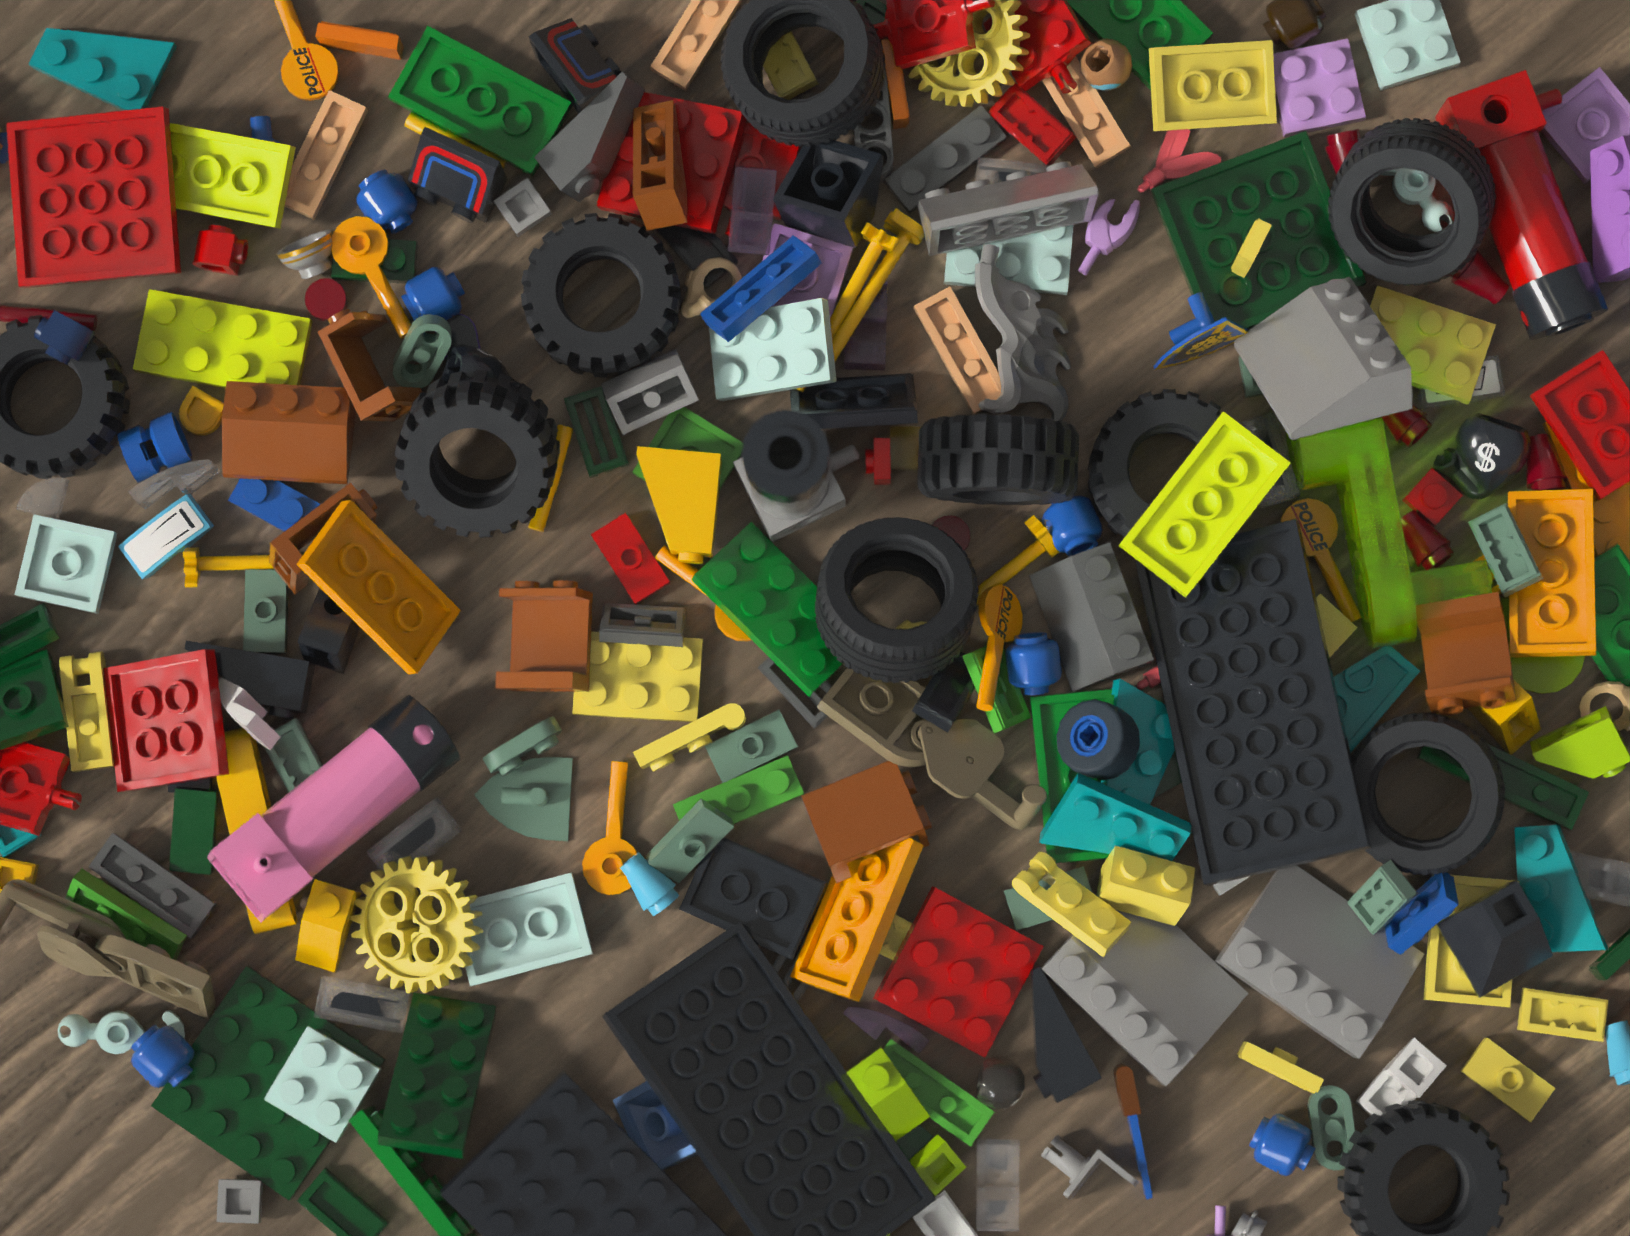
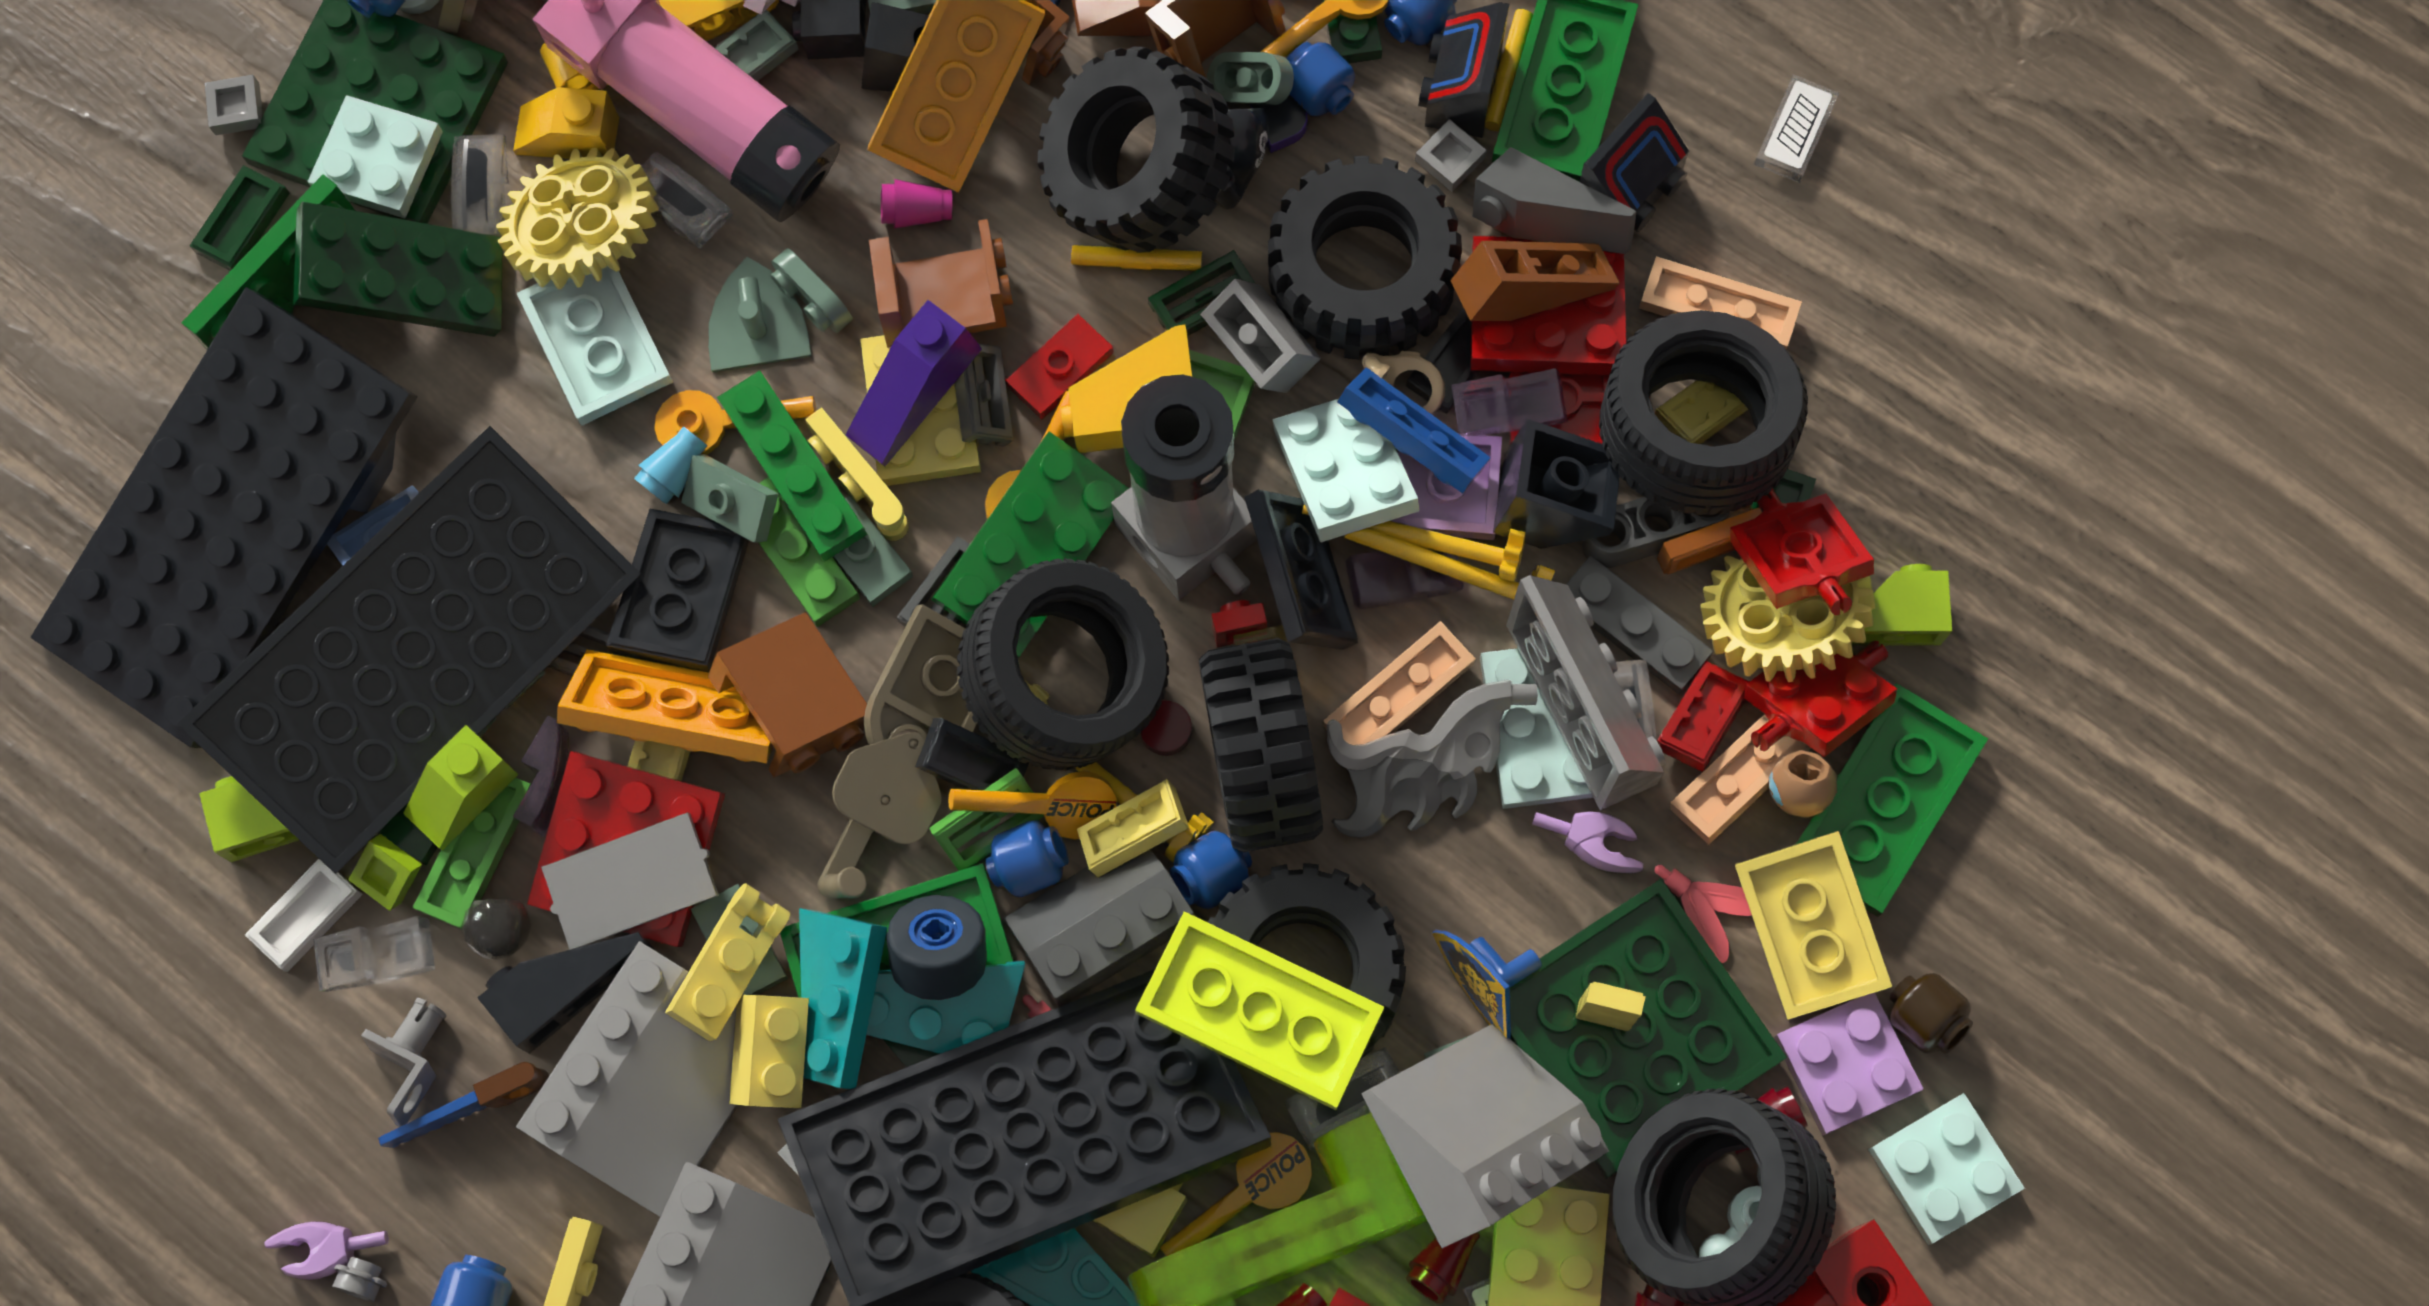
camera: 75 degrees right, 10 degrees down
(464, 648) = (914, 204): none -> dark pink cone
(632, 676) = (912, 381): none -> dark purple slope
(672, 786) = (792, 466): none -> green plate
(989, 970) = (630, 881): none -> light grey piece
(1030, 576) = (1132, 828): none -> light yellow plate

